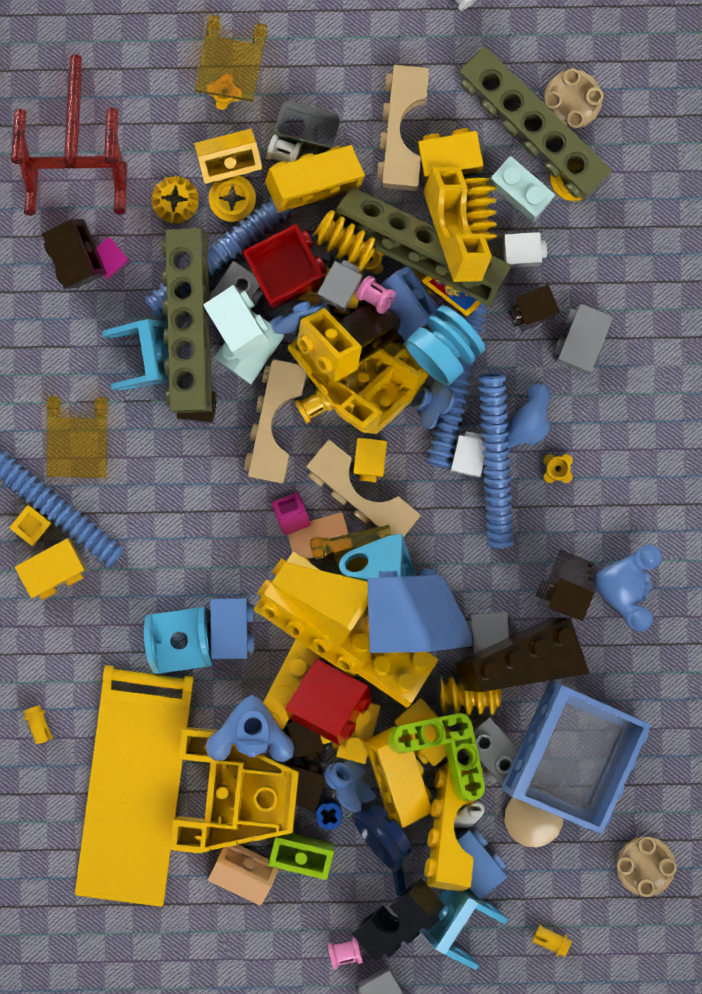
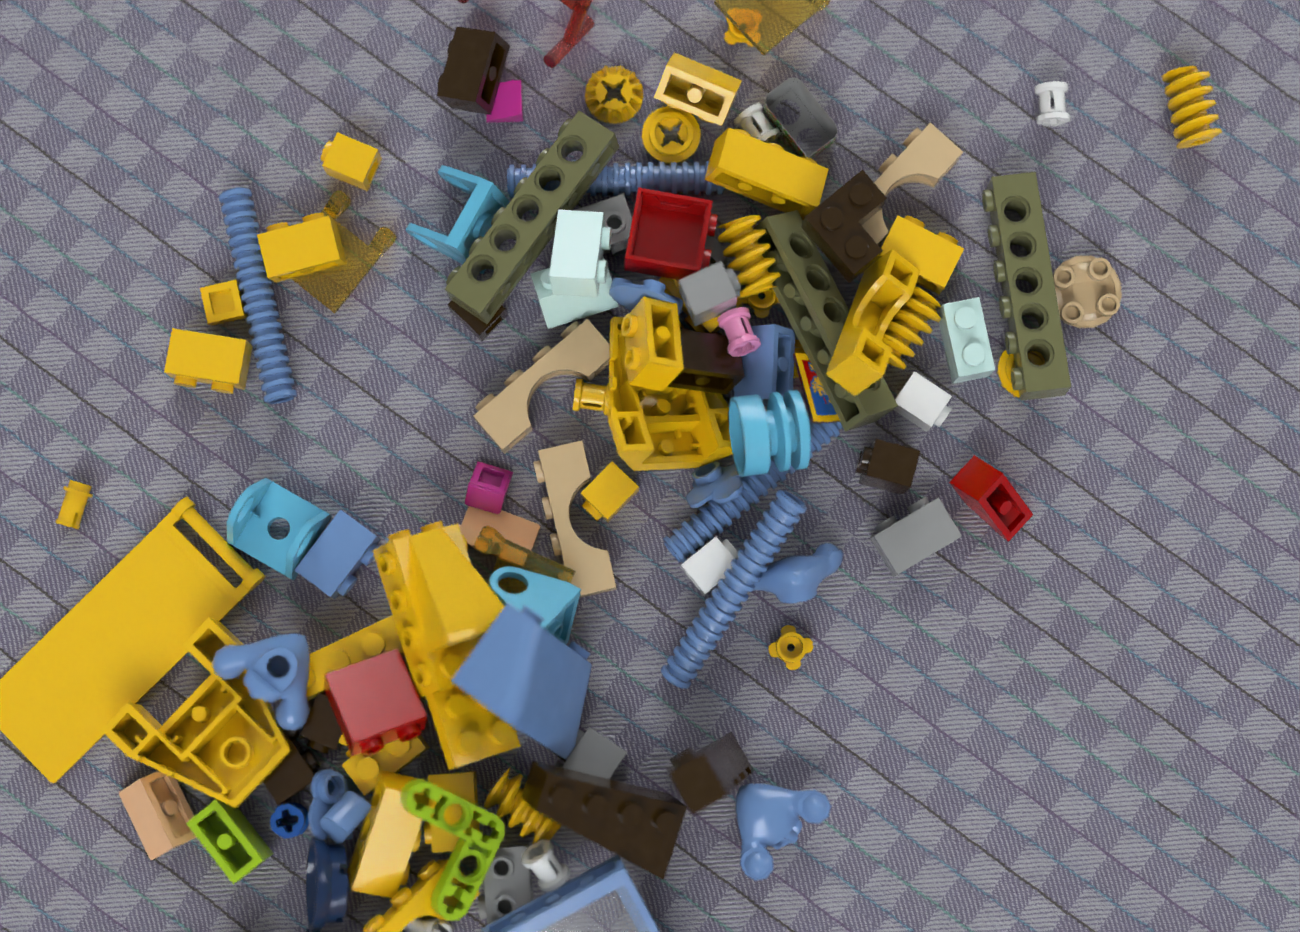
camera: 35 degrees right, 5 degrees down
(40, 372) = (350, 161): none -> yellow brick
(54, 452) = (301, 247): none -> yellow brick
(363, 785) = (345, 816): none -> medium blue brick
(385, 177) = (838, 228): none -> dark brown brick
(510, 720) = (545, 866): none -> white bush
(612, 277) = (991, 497): none -> red slope

